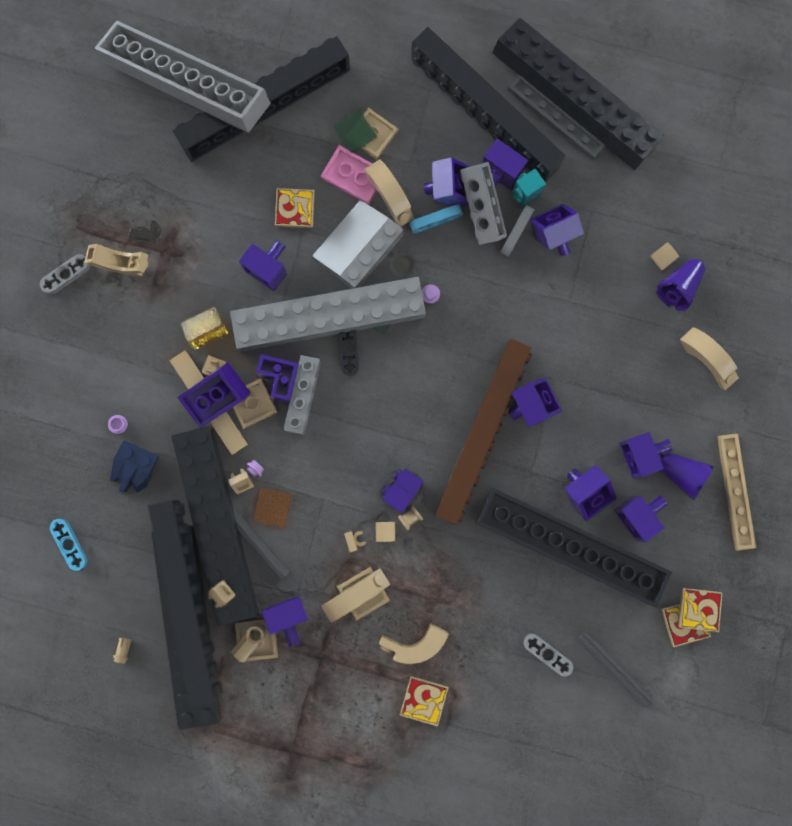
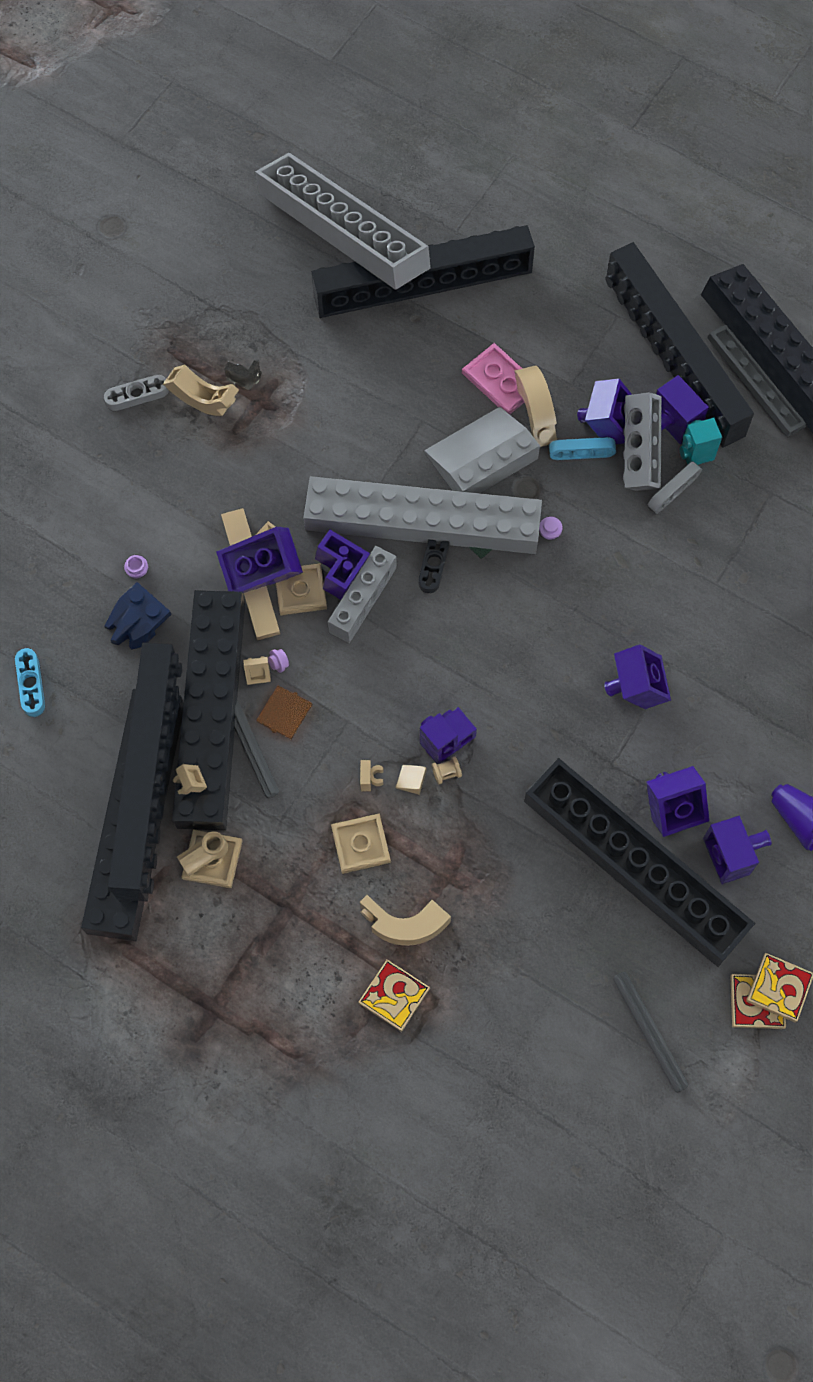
camera: 20 degrees right, 15 degrees down
(122, 650) = (47, 820): tan pin -> none
(204, 328) = (273, 489): clear yellow brick -> none
(264, 265) = (366, 441): dark purple brick -> none
(284, 618) = (256, 834): dark purple brick -> none
(294, 208) = (421, 395): tile -> none
(355, 131) = (517, 333): clear green piece -> none
(355, 595) = (347, 835): tan arch -> none
(383, 129) = (536, 342): tan tile -> none
(482, 432) = (563, 699): reddish brown brick -> none
(557, 227) = (722, 493): dark purple brick -> none
(562, 659) = (585, 998): light grey beam -> none
(643, 454) = (756, 776): dark purple brick -> none

